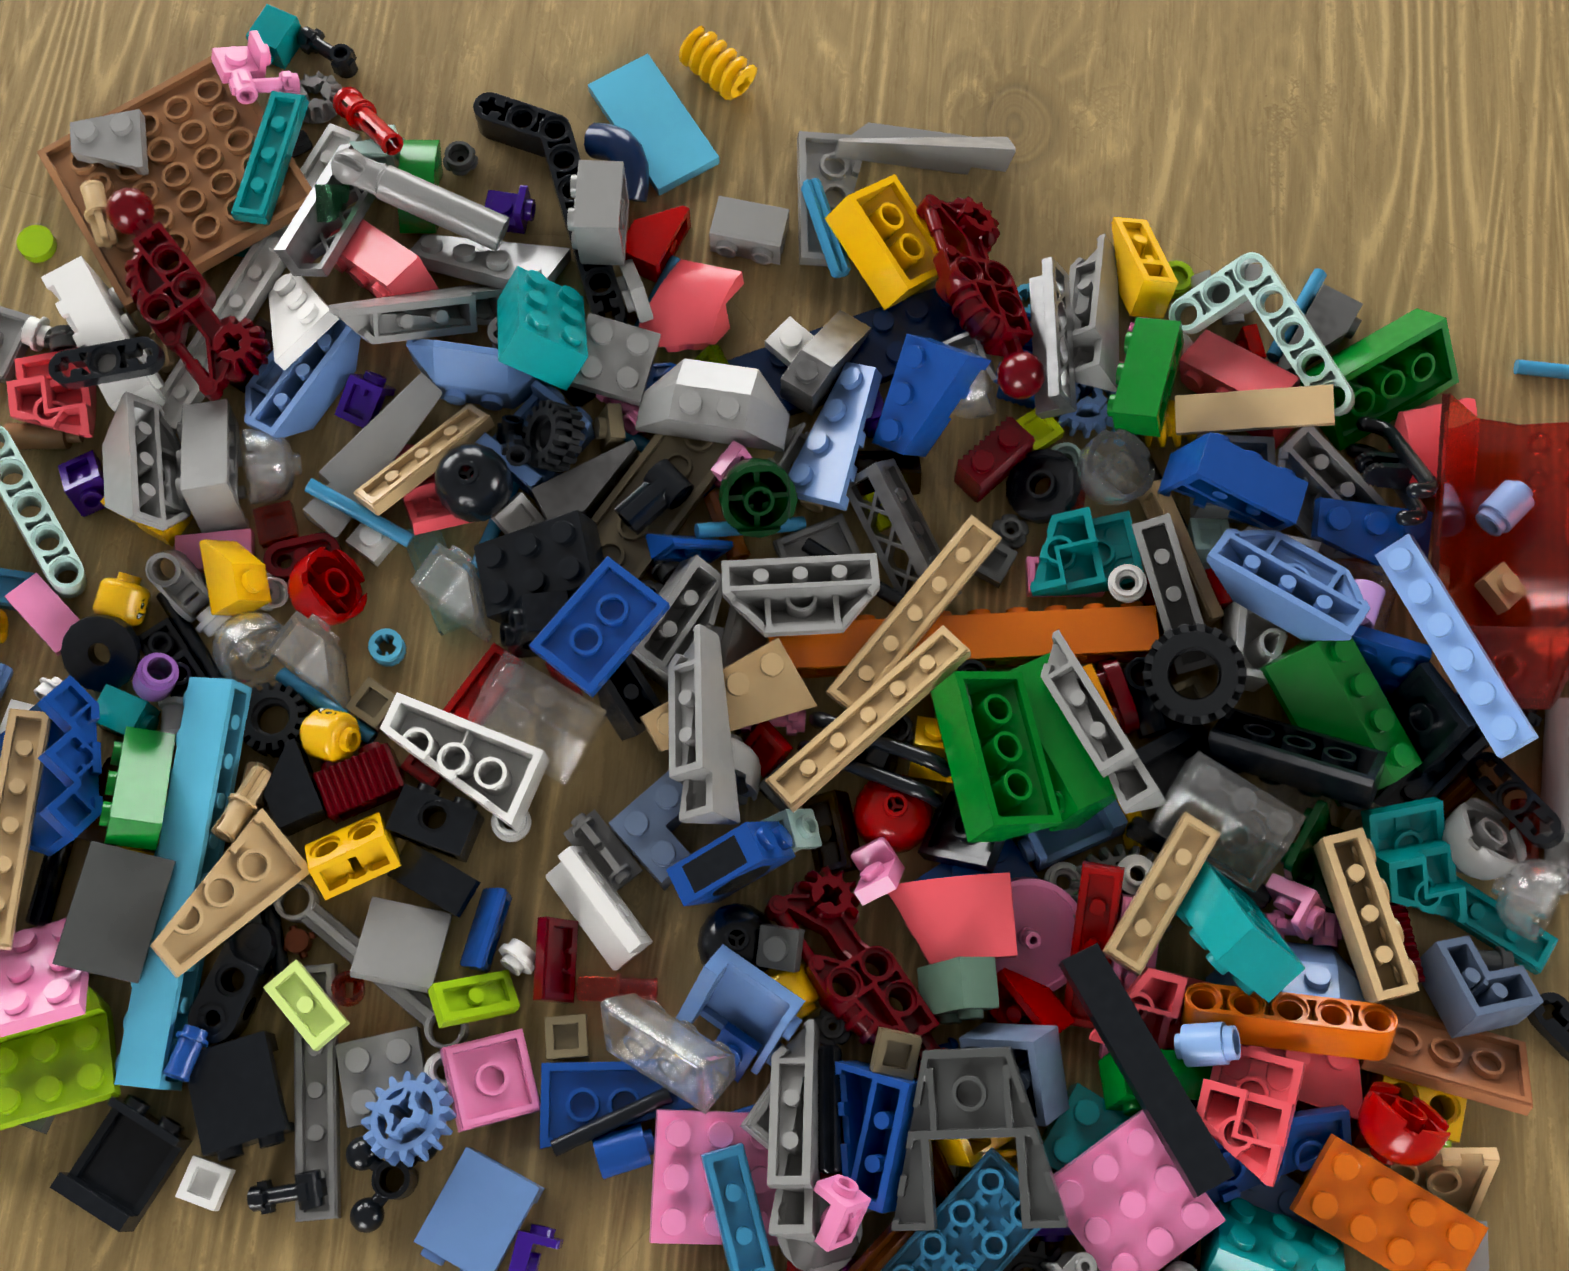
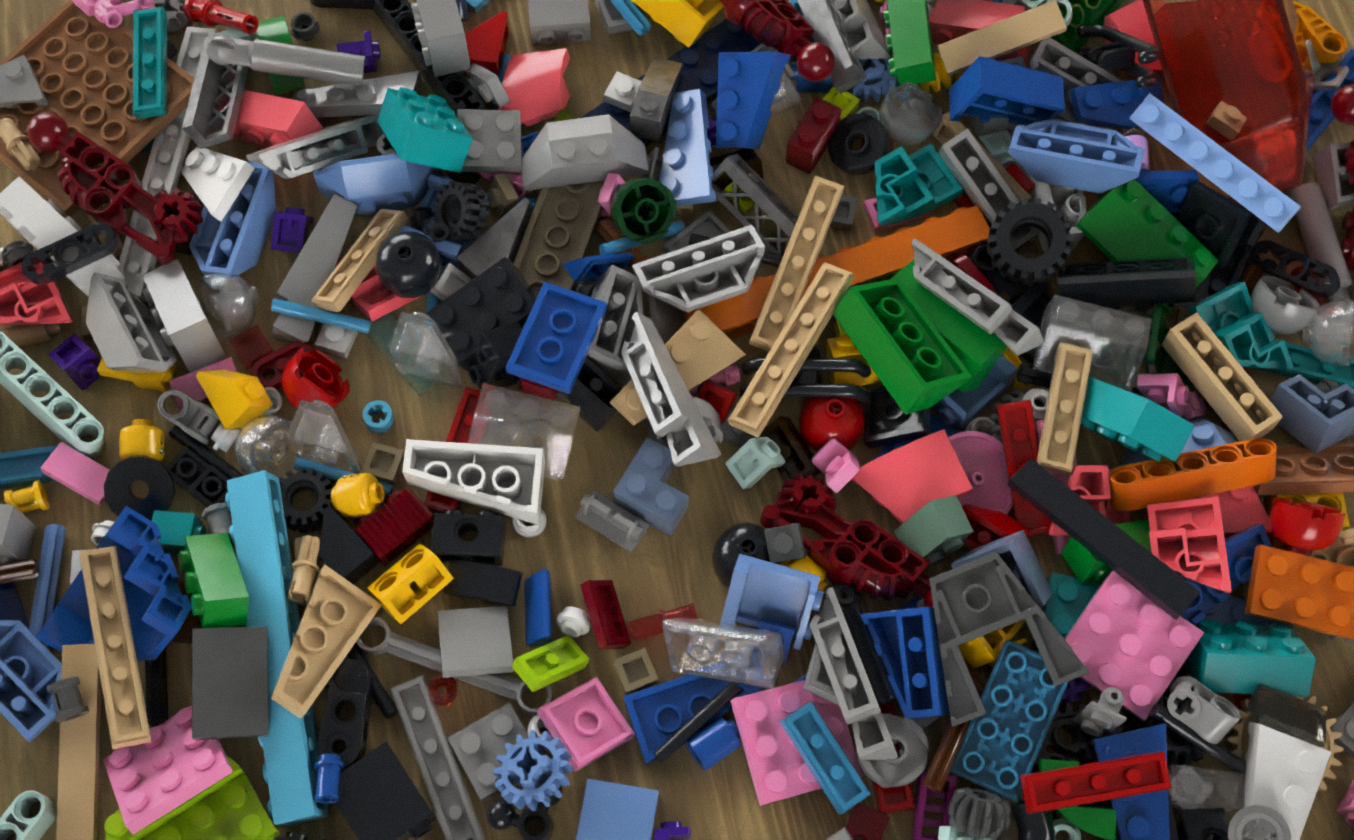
camera: 20 degrees left, 5 degrees down
(155, 677) = (196, 489): medium lavender brick -> none
(298, 941) = (386, 668): copper piece -> none
(306, 1005) = (414, 711): yellowish green plate -> none
(330, 200) = (213, 80): clear green tile -> none
(597, 907) = (624, 564): white panel -> none
(661, 490) = (562, 228): black piece -> none
(731, 862) = (723, 489): blue brick -> none
(844, 1213) = (912, 726): bright pink bracket -> none
(895, 1053) = (906, 591): dark tan plate -> none
(1020, 529) = (851, 181): dark grey plate -> none
(1123, 572) = (950, 186): white plate -> none
(1207, 1044) = (1141, 508): light blue brick -> none
(1505, 507) = (1208, 61): light blue brick -> none

